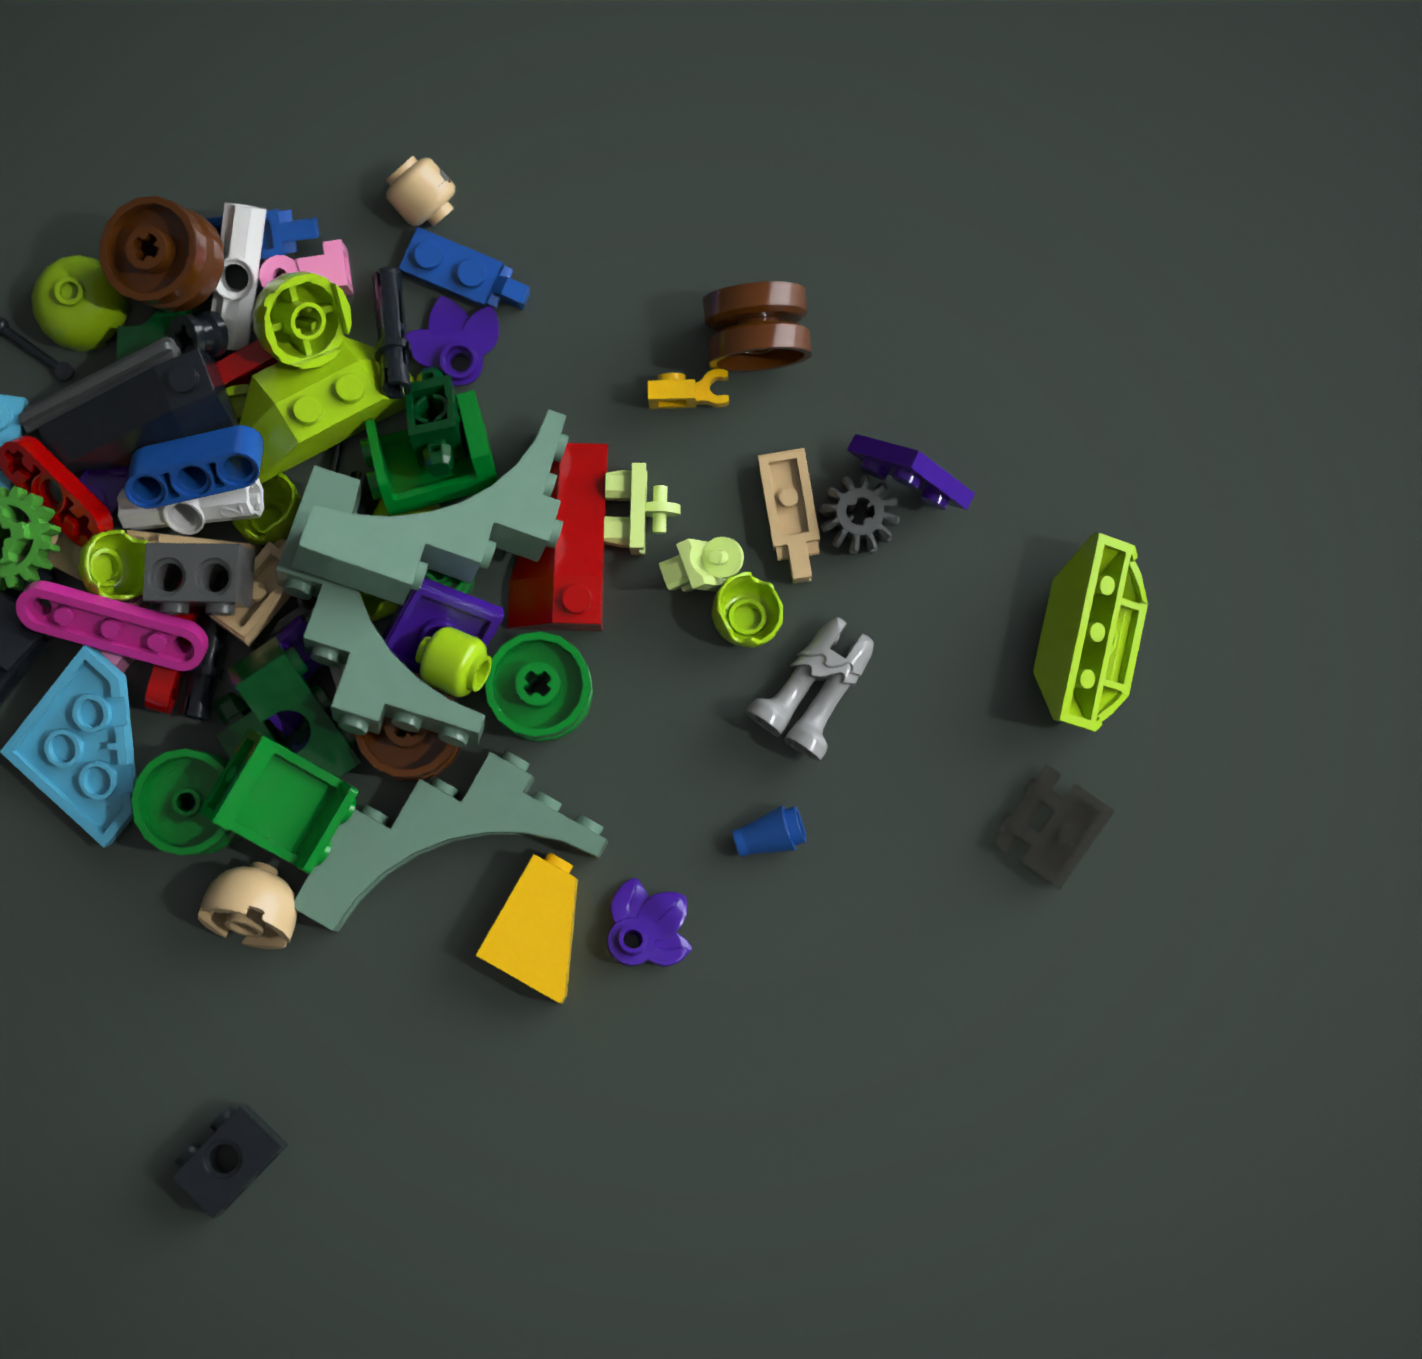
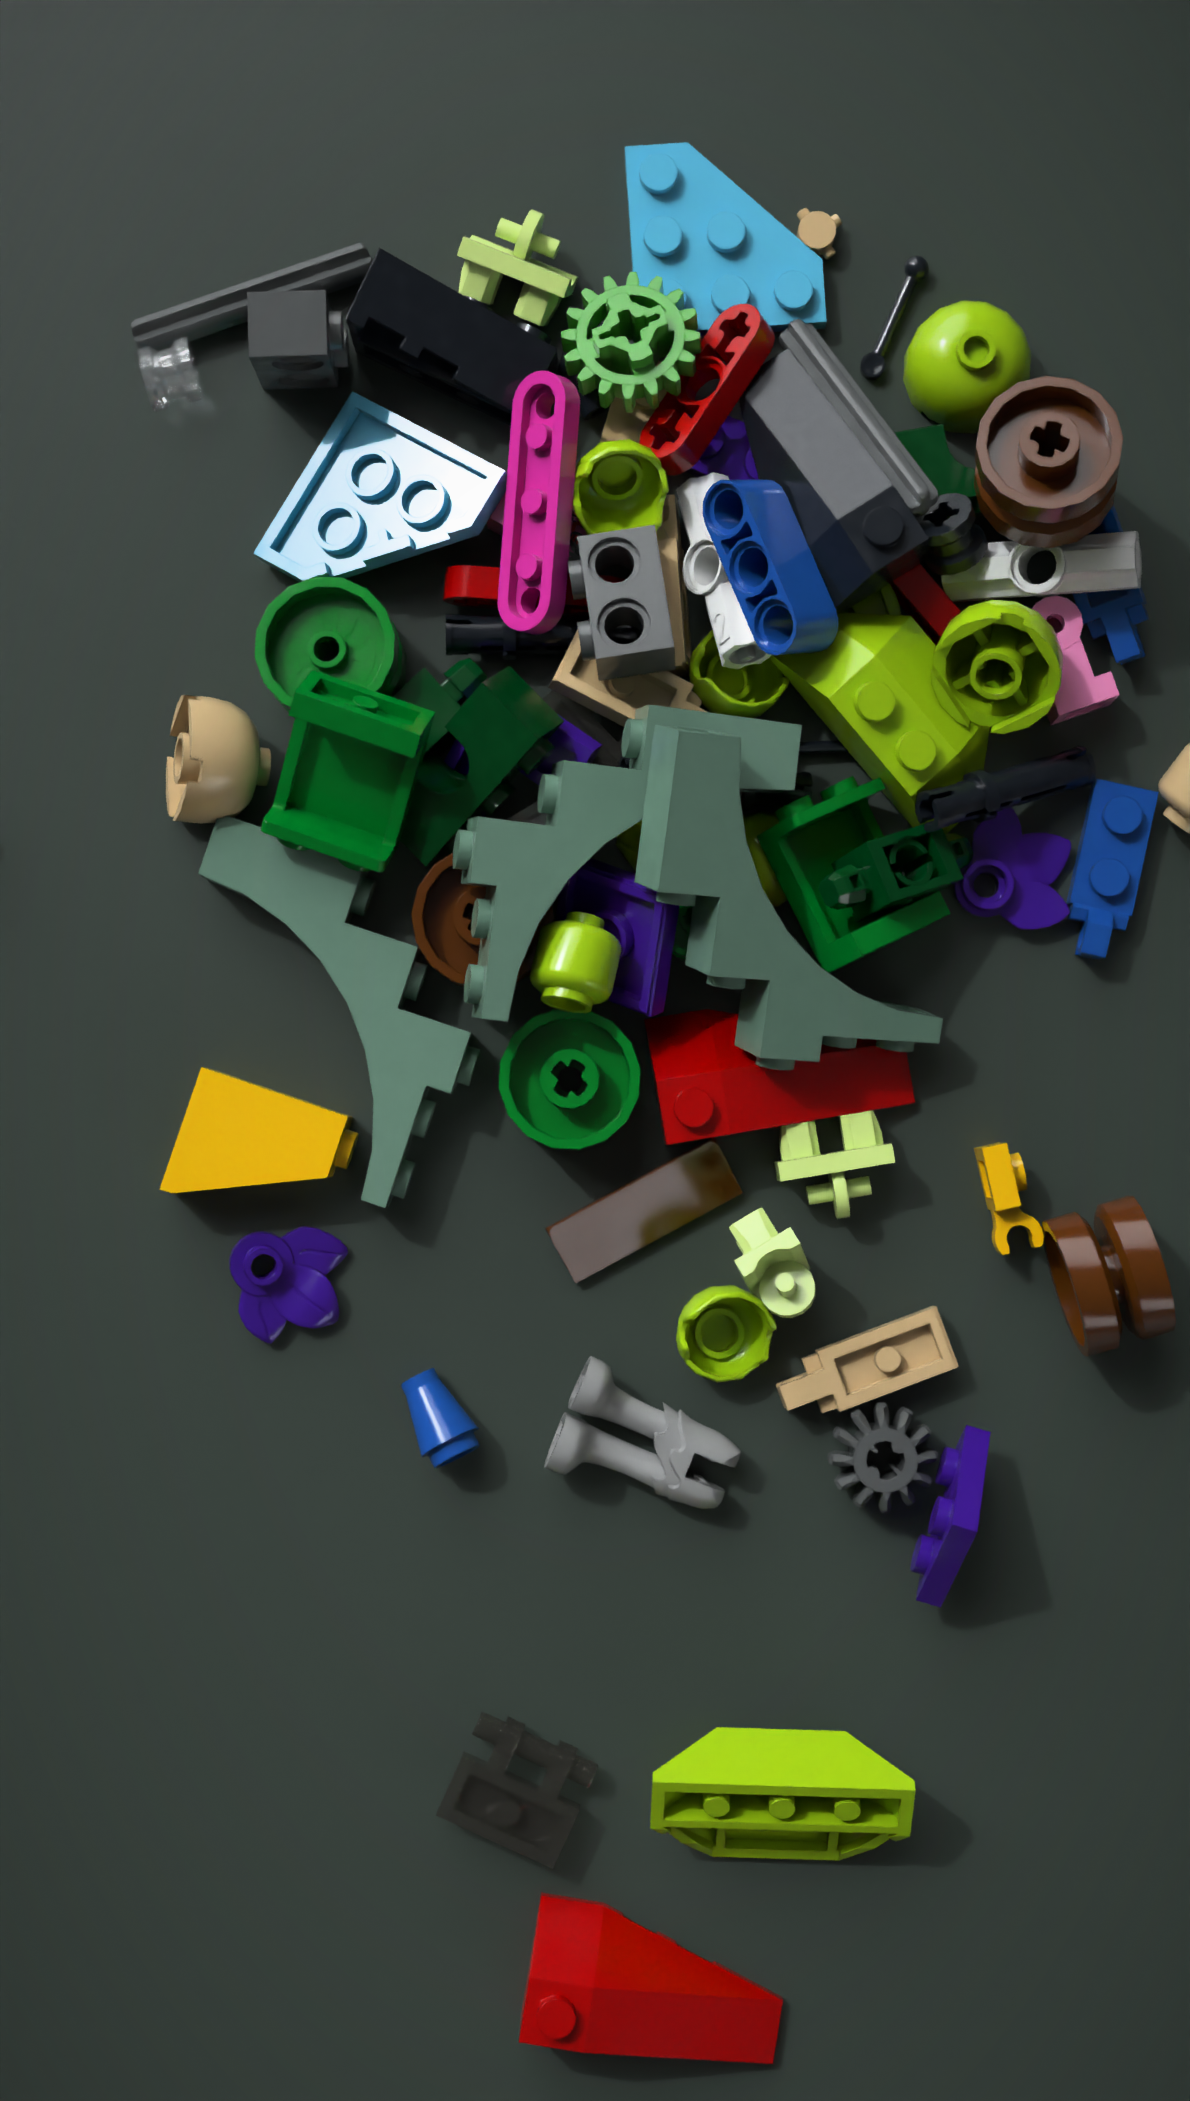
camera: 75 degrees right, 5 degrees up
(647, 654) = (644, 1210): none -> slope
(1213, 773) = (634, 1992): none -> red wedge

